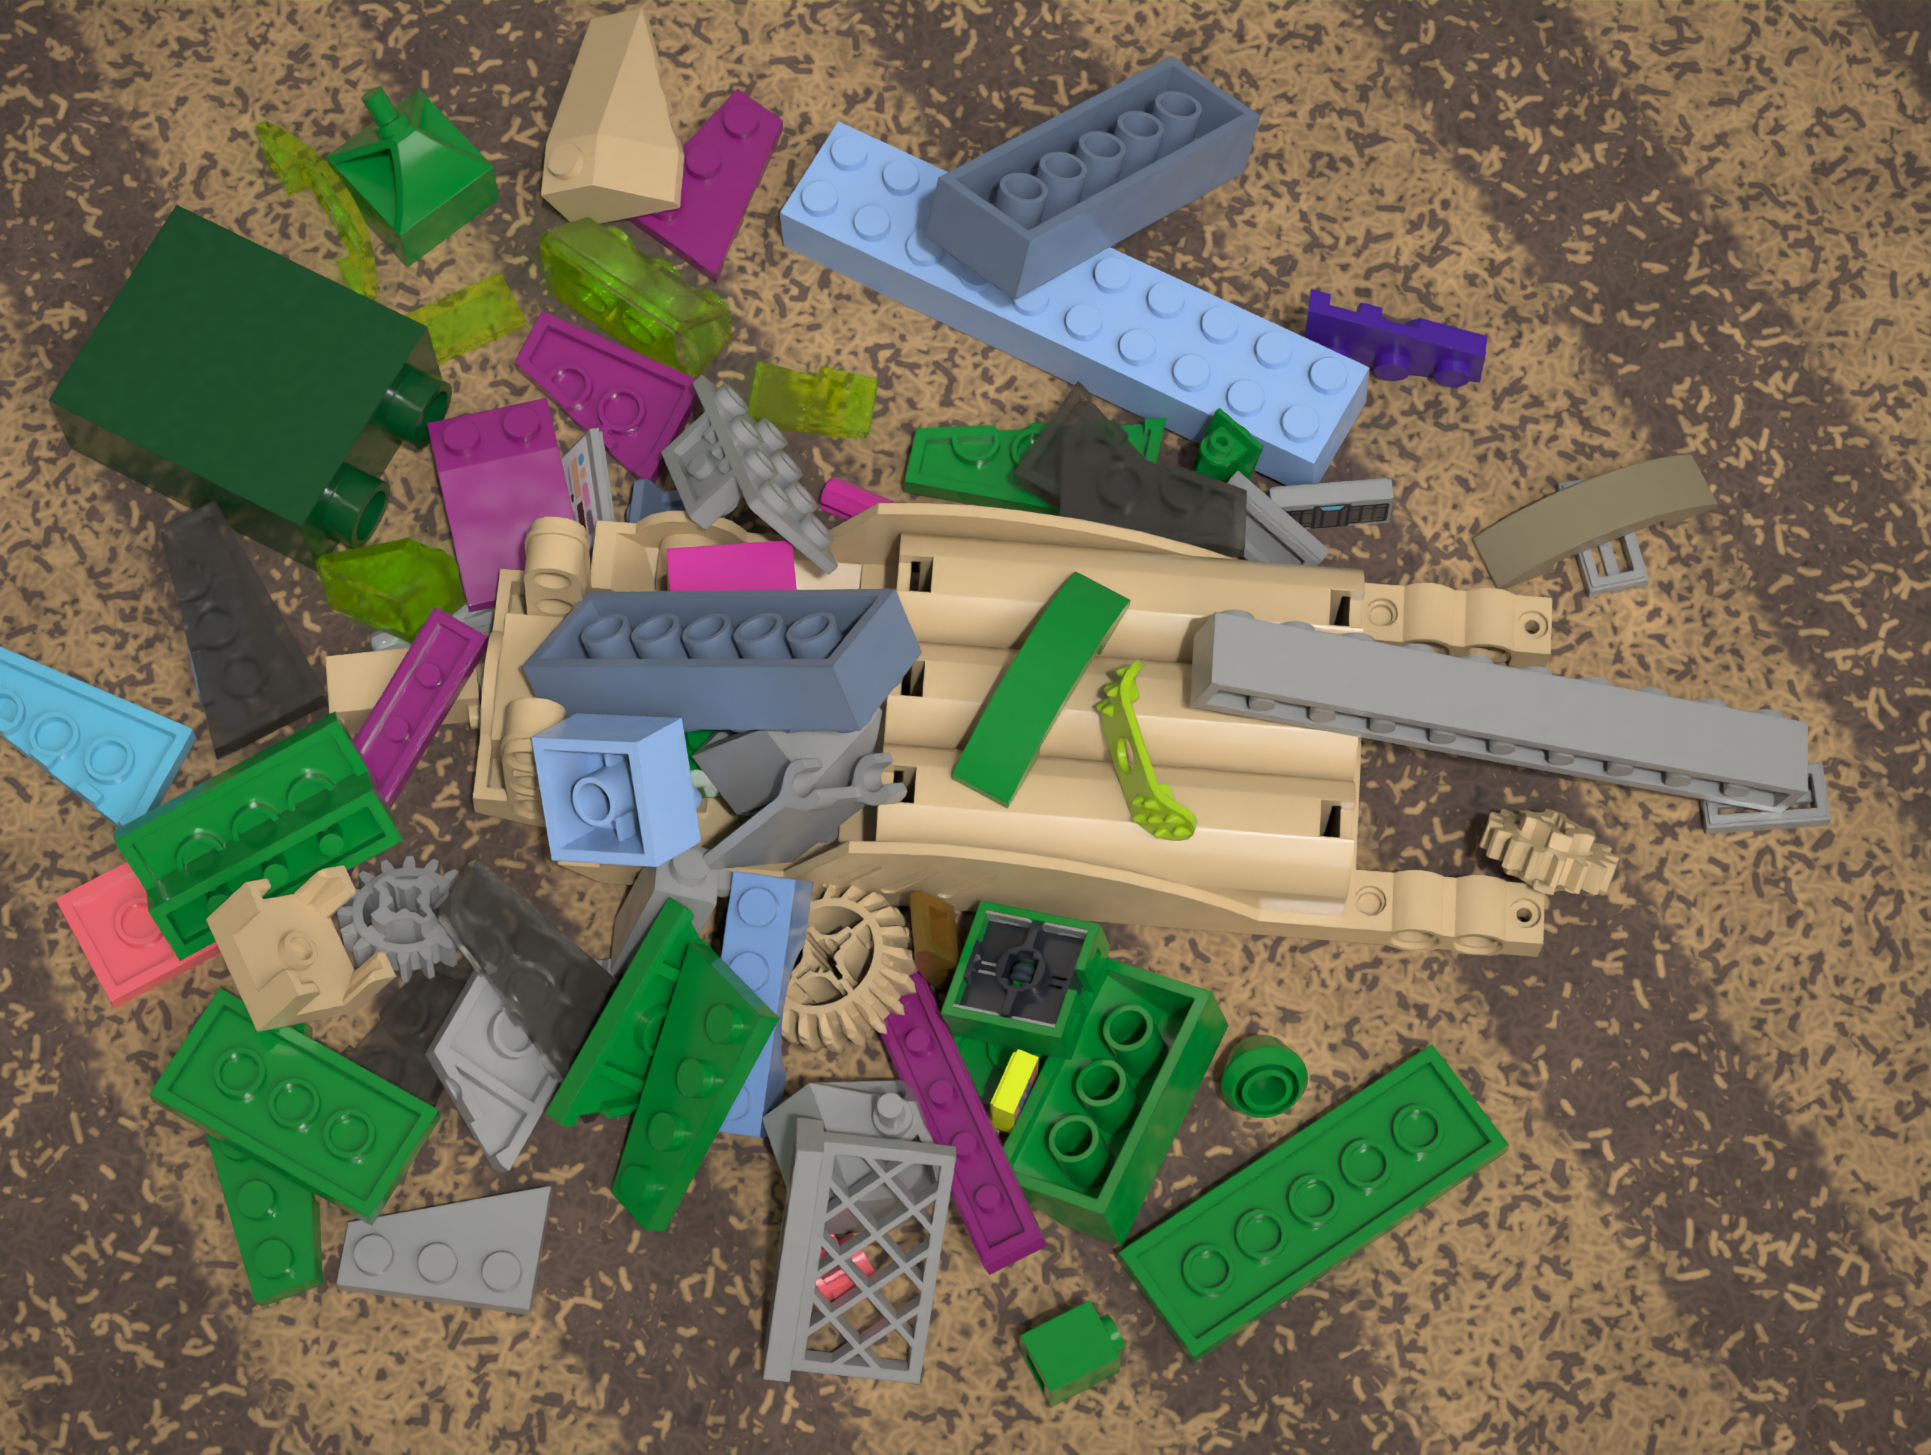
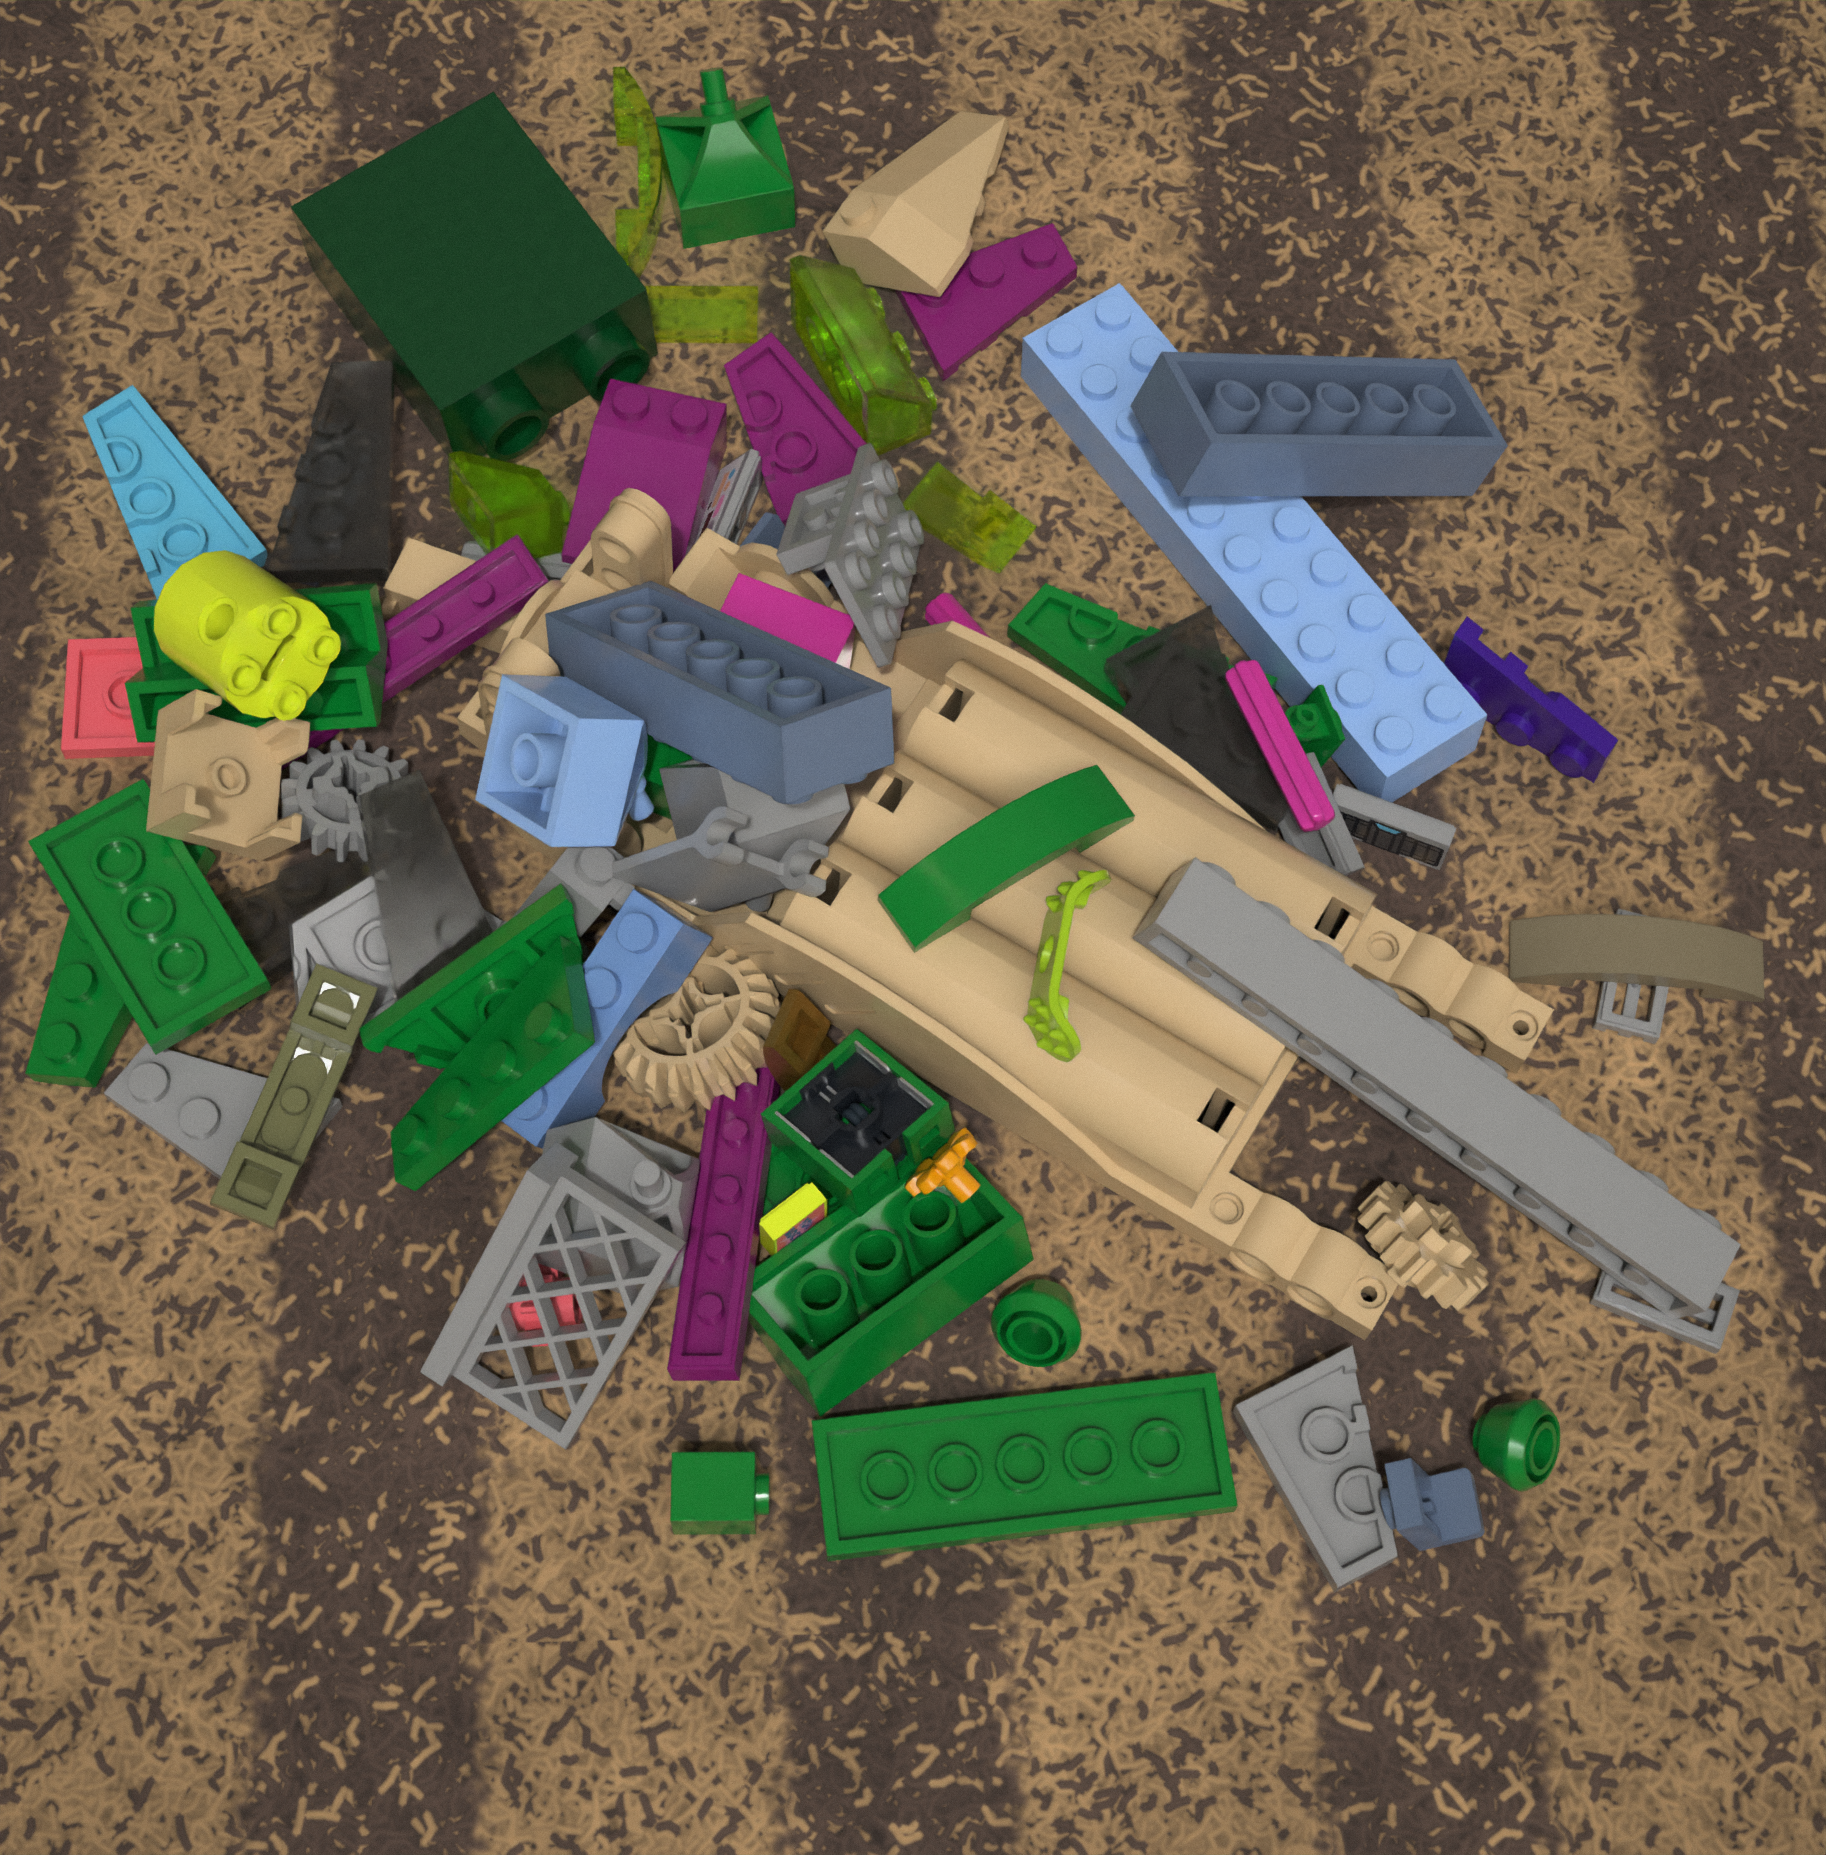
camera: 25 degrees right, 0 degrees up
(258, 812) = (245, 634): none -> neon yellow cylinder
(518, 1199) = (295, 1097): none -> olive slope
(1125, 981) = (947, 1169): none -> light orange plant
(1212, 479) = (1279, 746): none -> dark pink axle
(1555, 1075) = (1322, 1464): none -> light grey wing
(1666, 1066) = (1431, 1508): none -> sand blue bracket
(1708, 977) = (1518, 1442): none -> green cone

